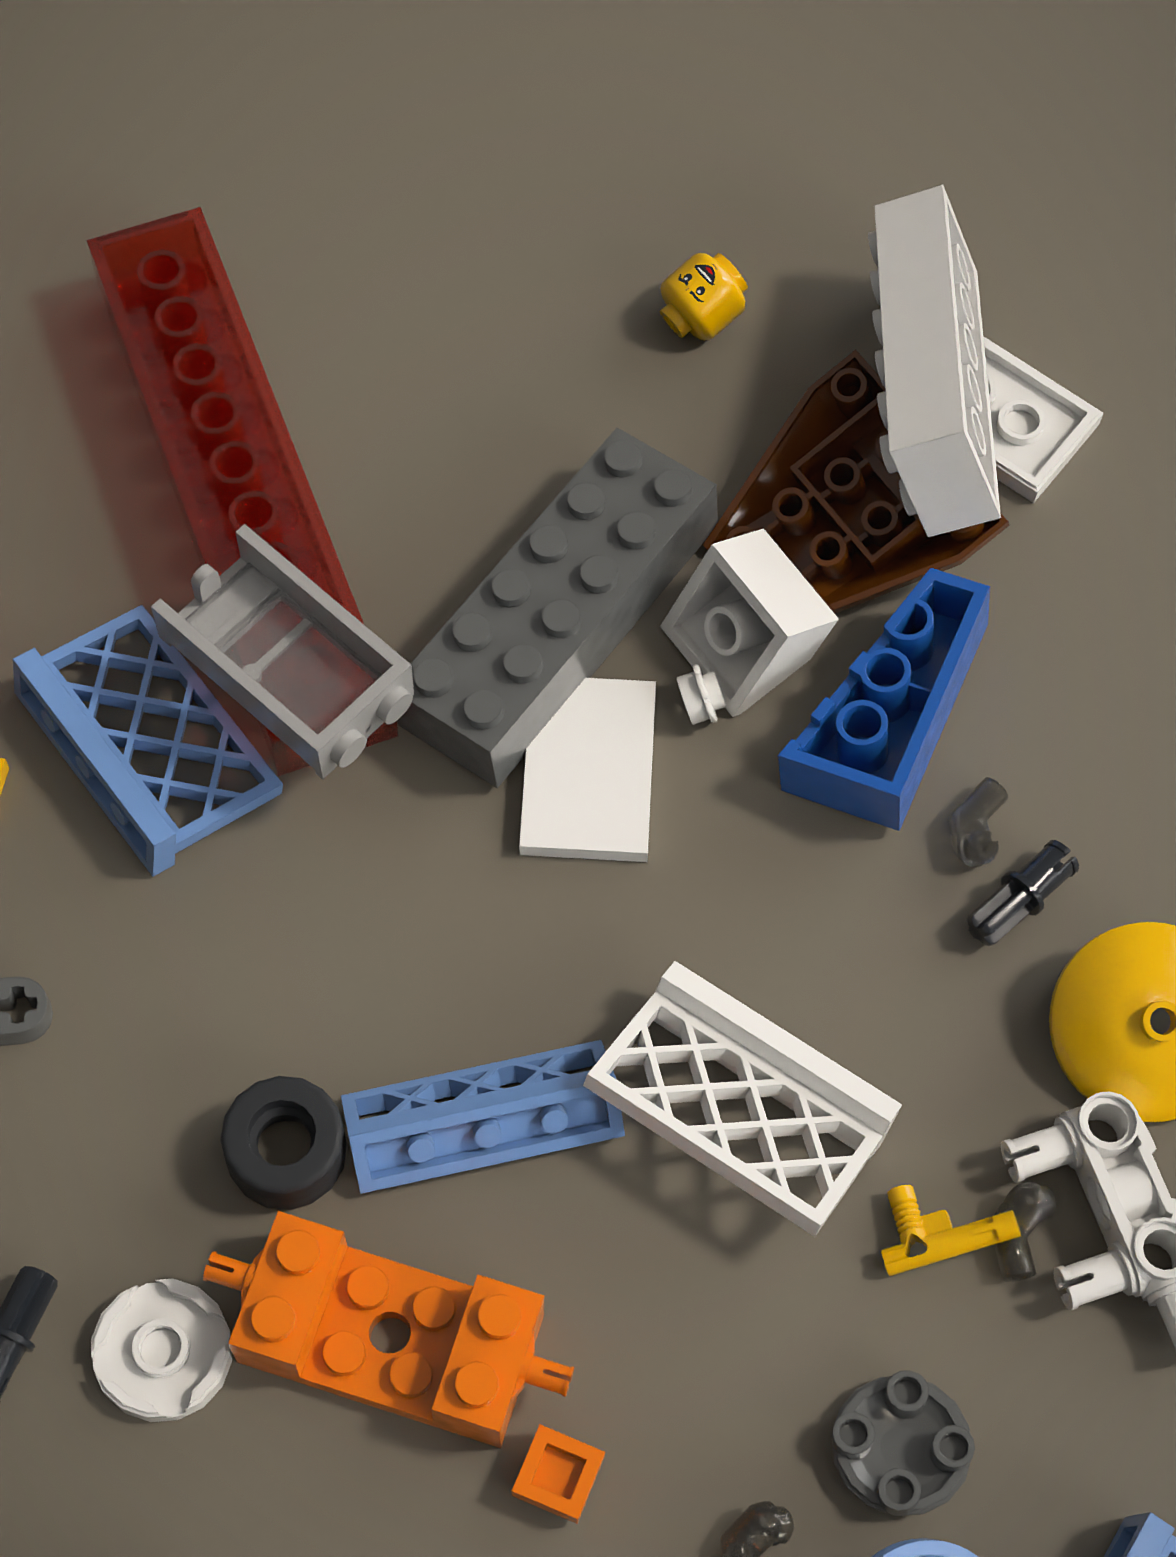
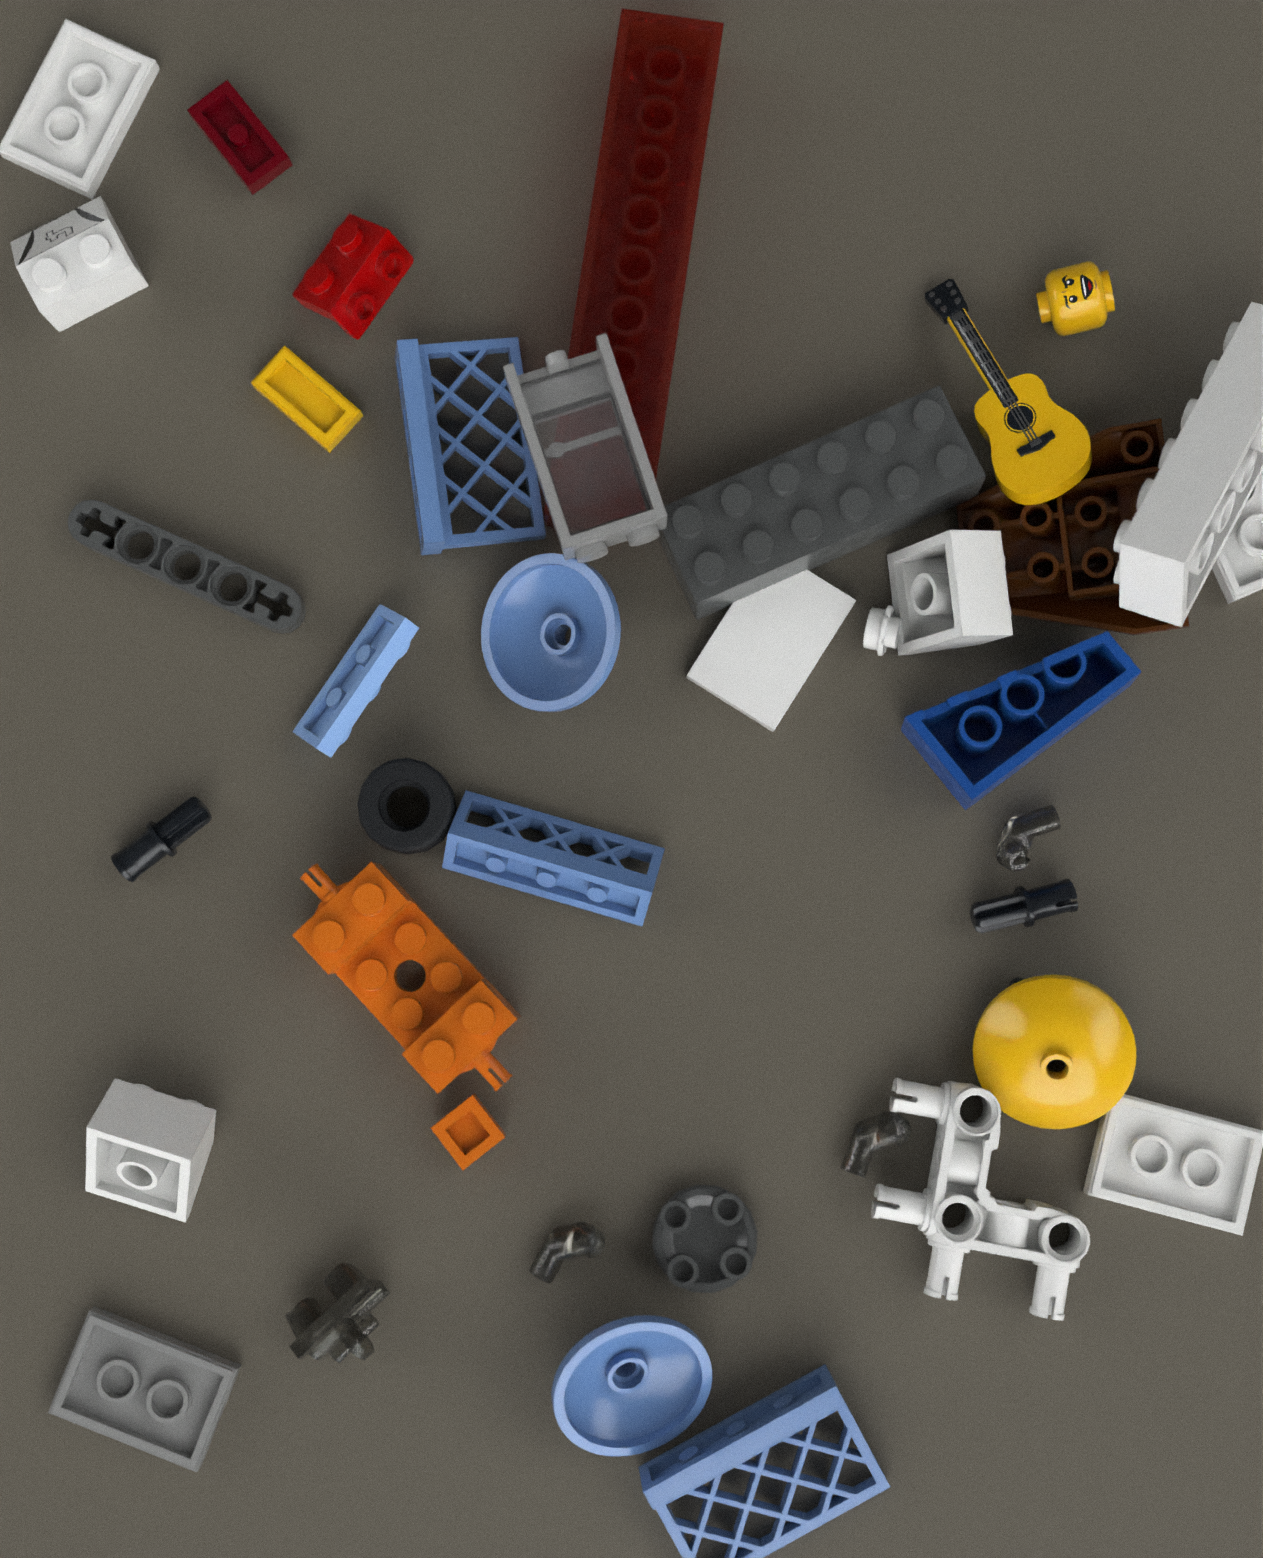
camera: 30 degrees right, 20 degrees up
(150, 1039) = (356, 680): none -> light blue plate
(161, 1350) = (257, 901): white tile -> none
(314, 861) = (527, 630): none -> medium blue dish
(744, 436) = (1033, 441): none -> yellow piece
(767, 1065) = (773, 943): white fence -> none
(938, 1234) = (814, 1115): yellow hose -> none

